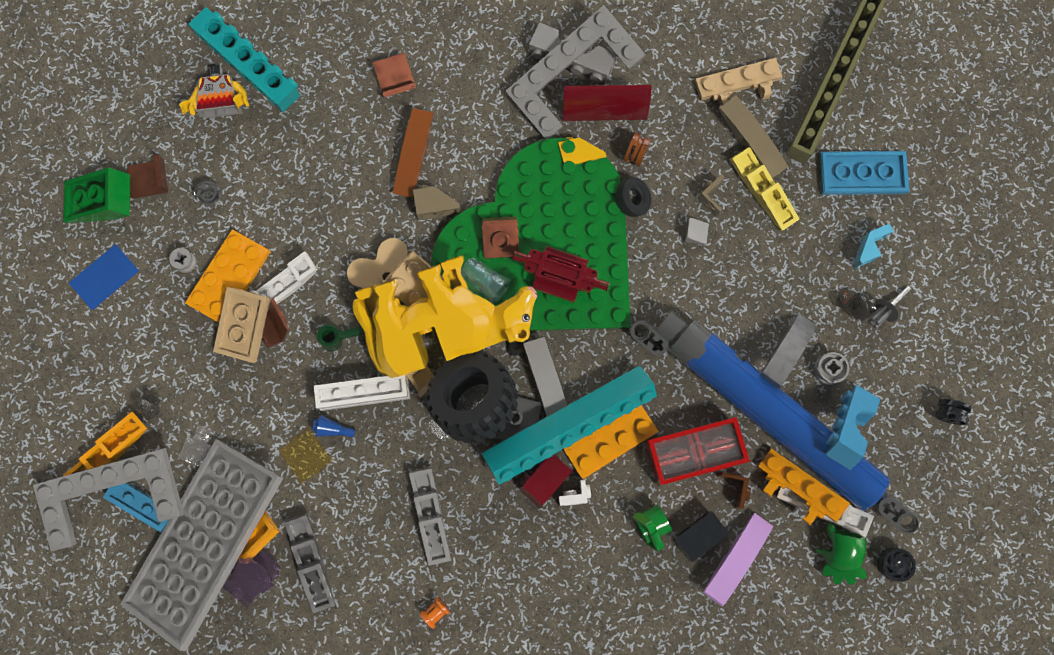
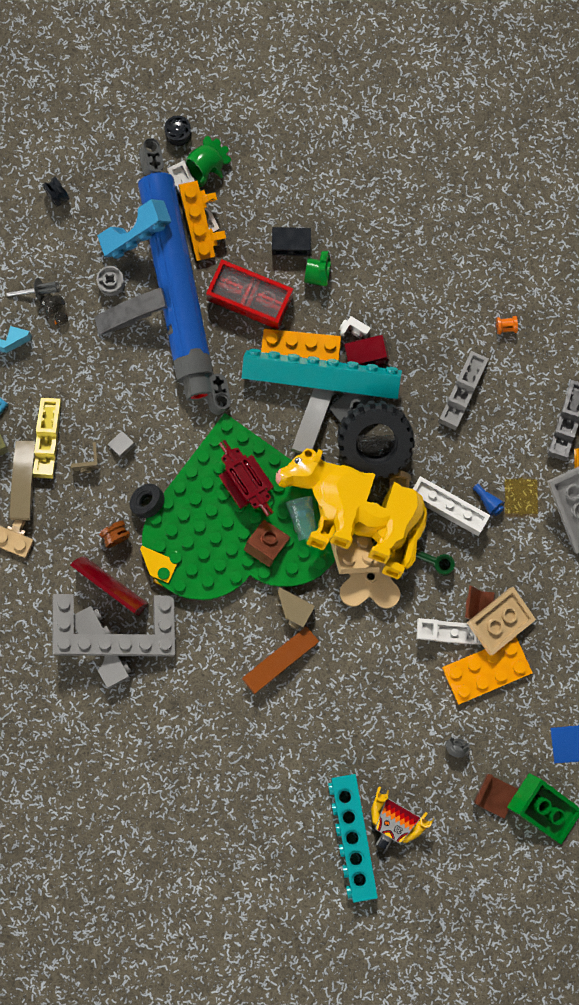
camera: 140 degrees left, 0 degrees up
(187, 263) = (509, 709): light grey wheel -> none
(394, 75) = (248, 733): copper piece -> none
(738, 559) = (278, 208): lavender slope -> none
(743, 489) = (238, 248): reddish brown bracket -> none

